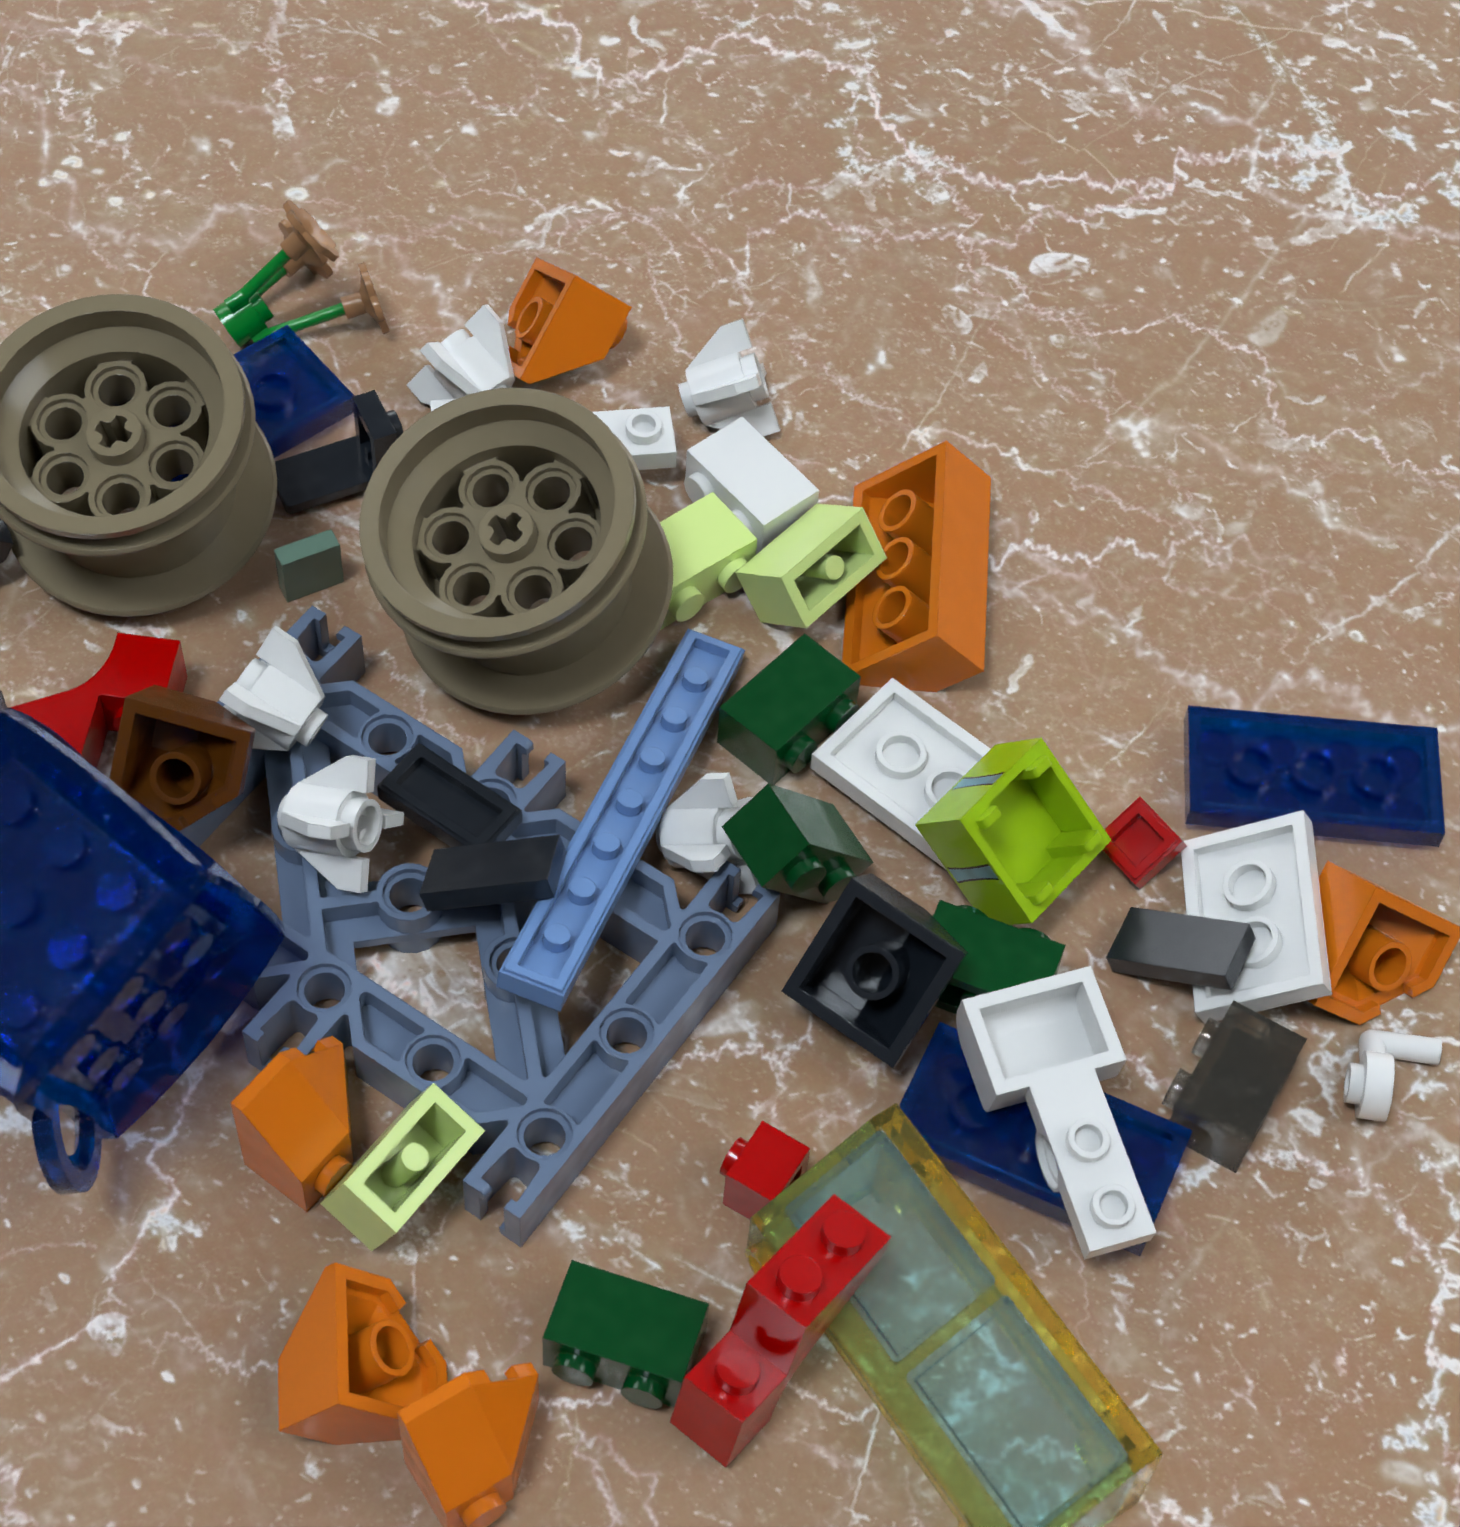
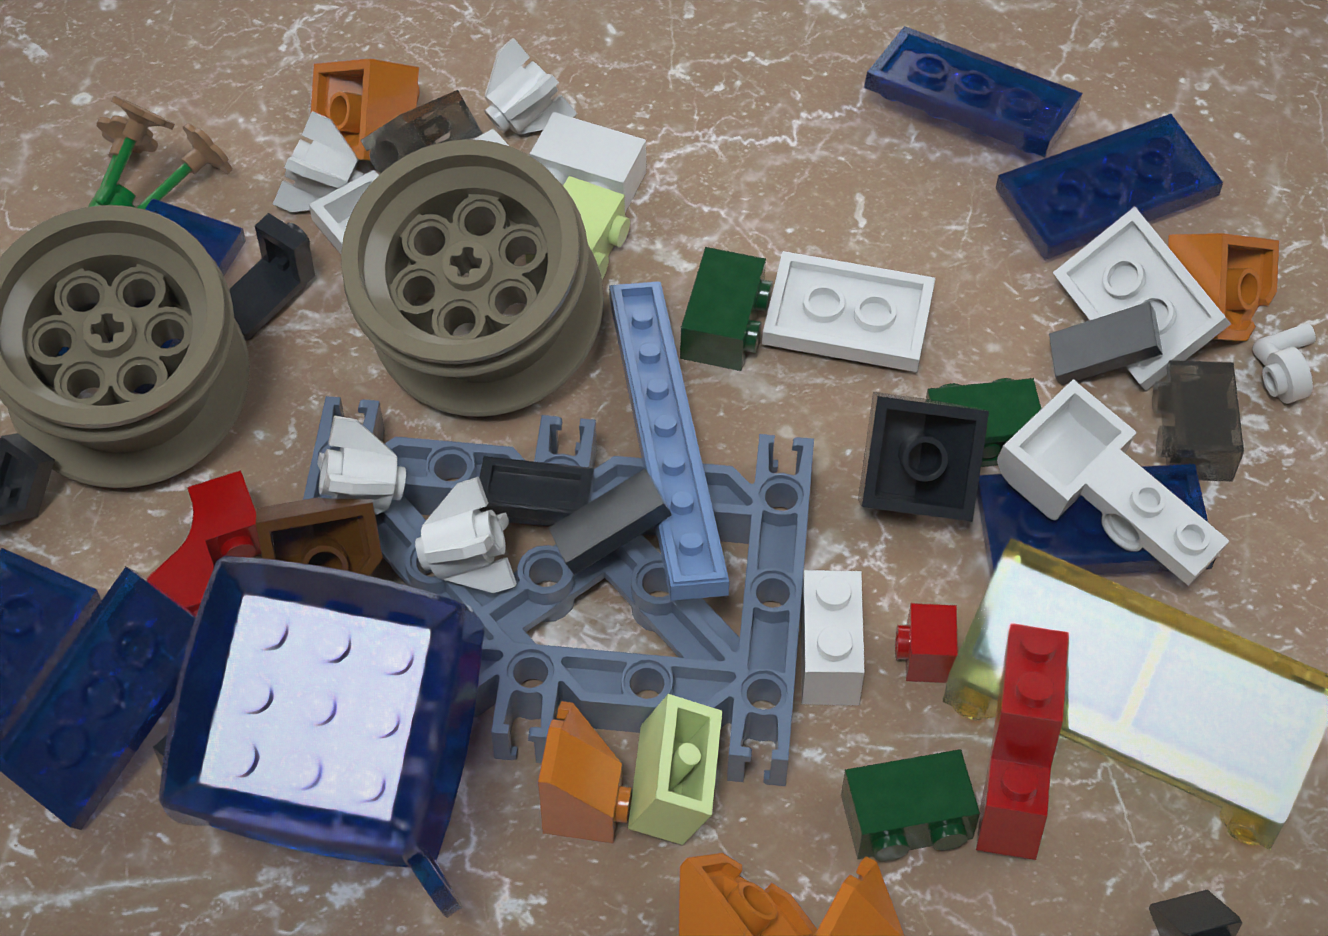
camera: 25 degrees left, 0 degrees up
(309, 565) = (294, 370): sand green tile -> none
(589, 373) = (420, 129): none -> clear smoke brick
(661, 1114) = (831, 637): none -> white brick
(693, 832) = (733, 418): white brick -> none
(797, 844) = (805, 398): dark green brick -> none
(811, 565) = (673, 197): yellowish green brick -> none
(927, 602) = (748, 168): orange slope -> none
(1014, 831) = (946, 315): lime container -> none
(1141, 842) = (1026, 286): red tile -> none
(1226, 601) = (973, 91): none -> clear blue plate

